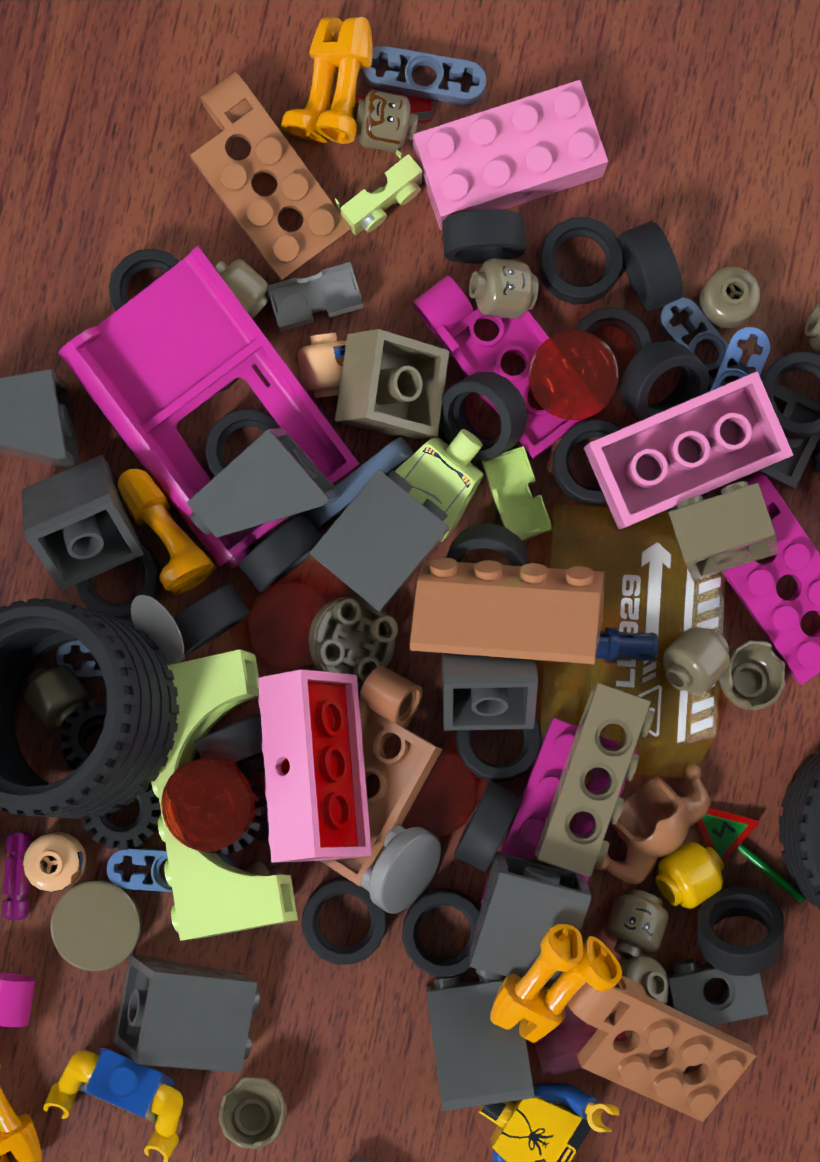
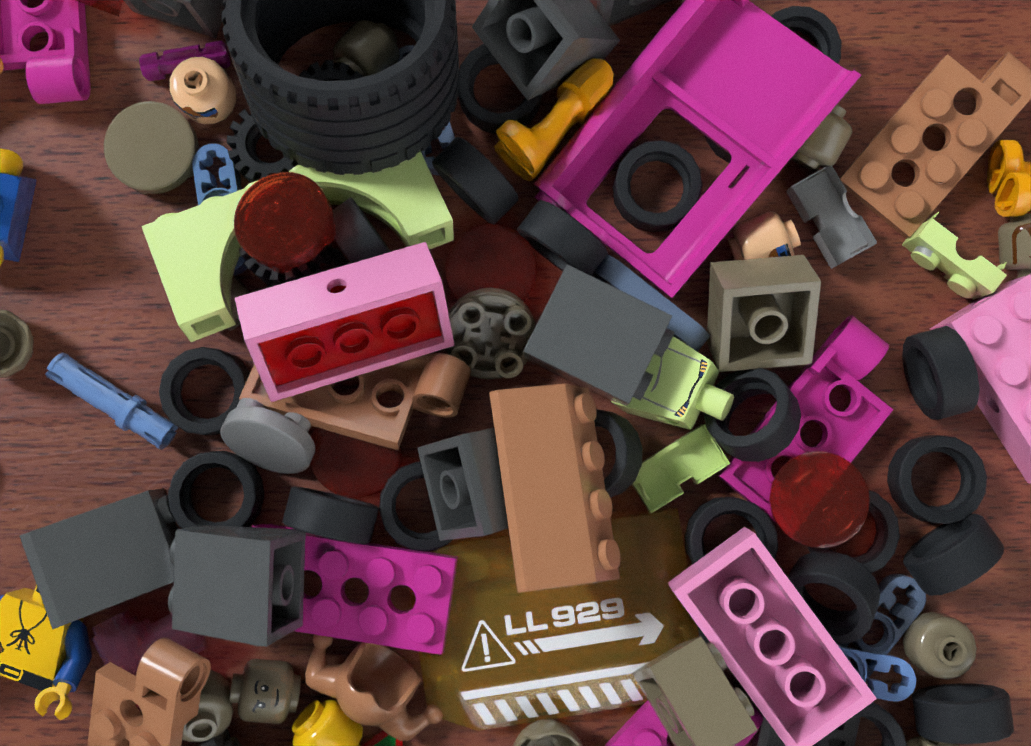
camera: 75 degrees right, 0 degrees up
(159, 626) = (456, 133): white sticker -> none
(185, 1015) = (77, 255): dark grey slope -> none
(260, 486) = (626, 198): dark grey slope -> none
(338, 1008) = (127, 411): none -> medium blue pin
(504, 288) = (892, 406): dark tan head -> none
(544, 1008) = (193, 640): light orange piece -> none
(584, 851) = (321, 622): dark tan brick -> none
(624, 645) = (548, 620): dark blue pin -> none
(696, 660) = (549, 696): dark tan head -> none
(793, 293) = (963, 713): none -> black tyre

